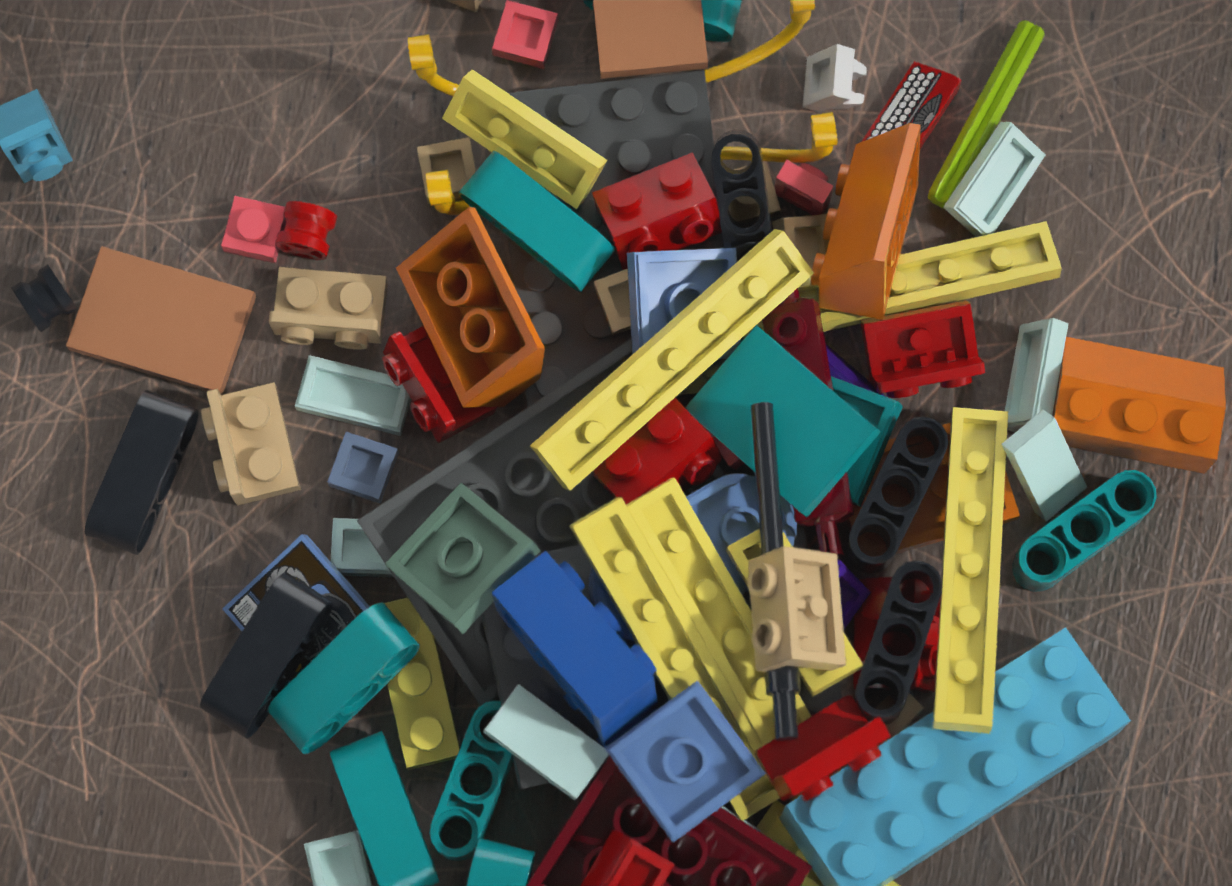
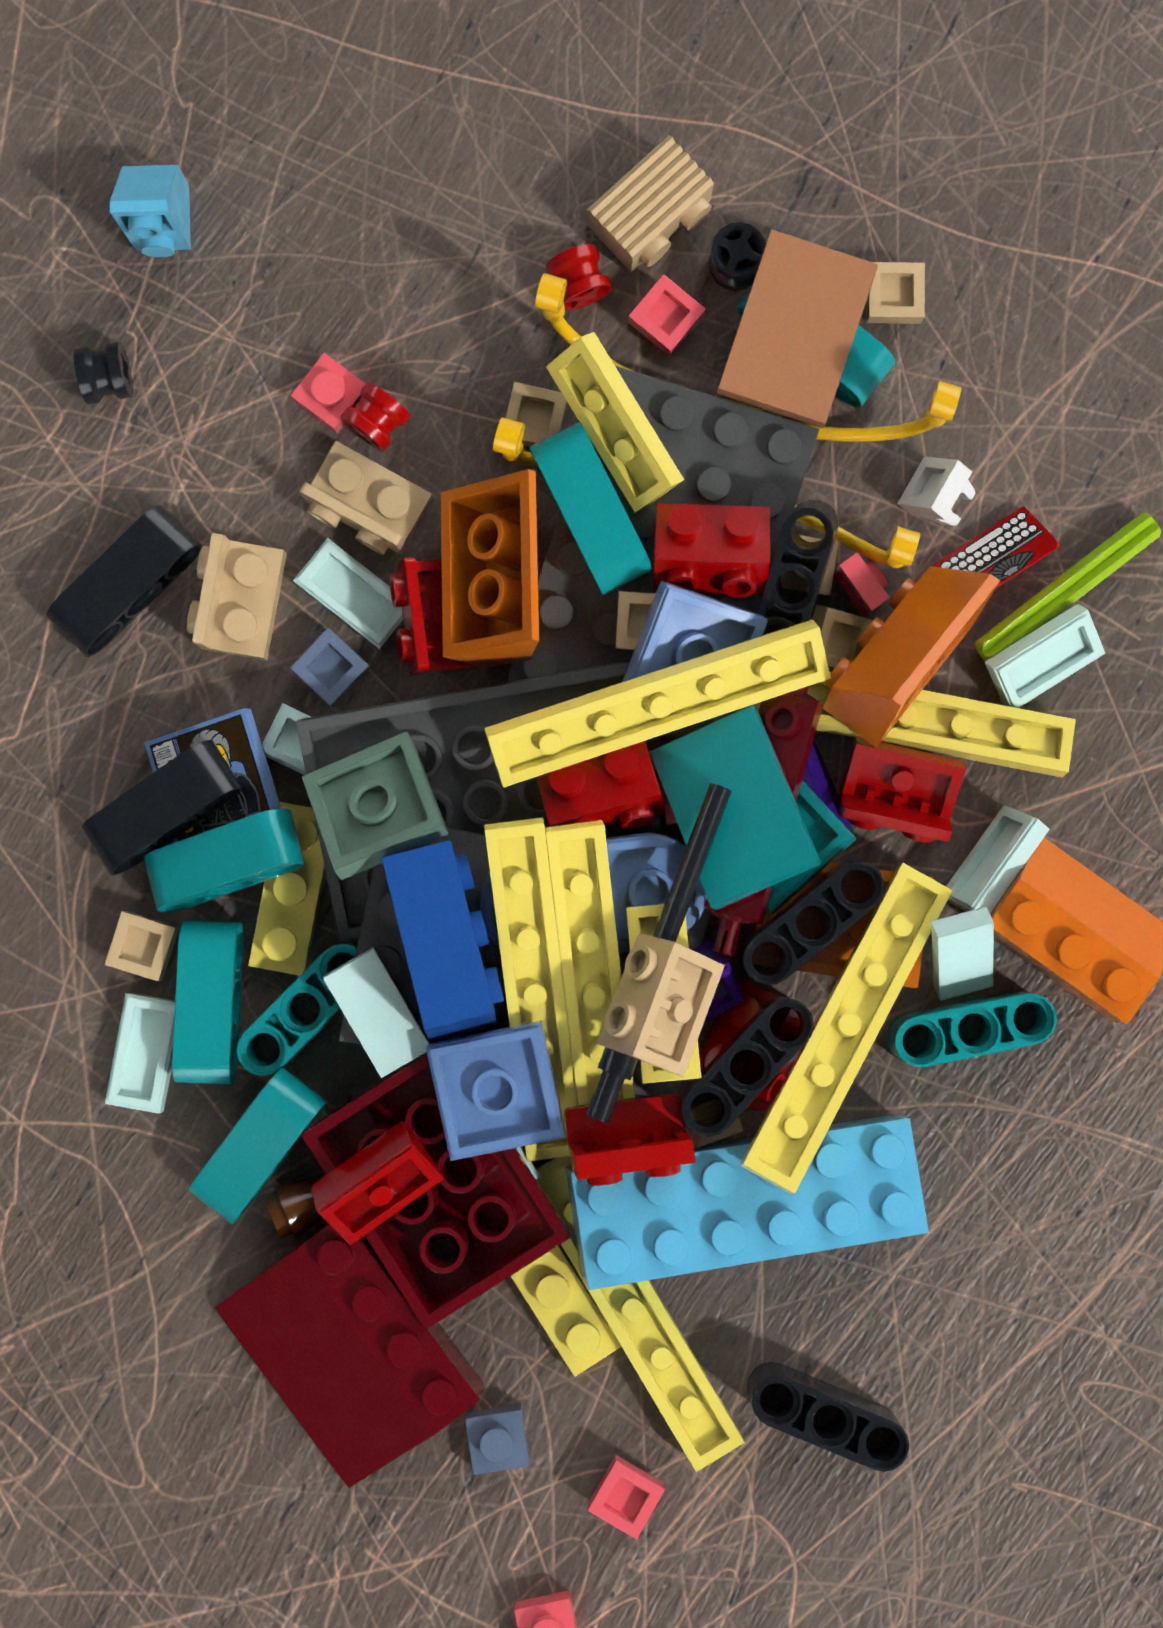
camera: 20 degrees right, 10 degrees up
(161, 320) = (205, 442): nougat tile -> none
(300, 792) = (142, 946): none -> tan plate
(444, 35) = (583, 276): none -> red wheel

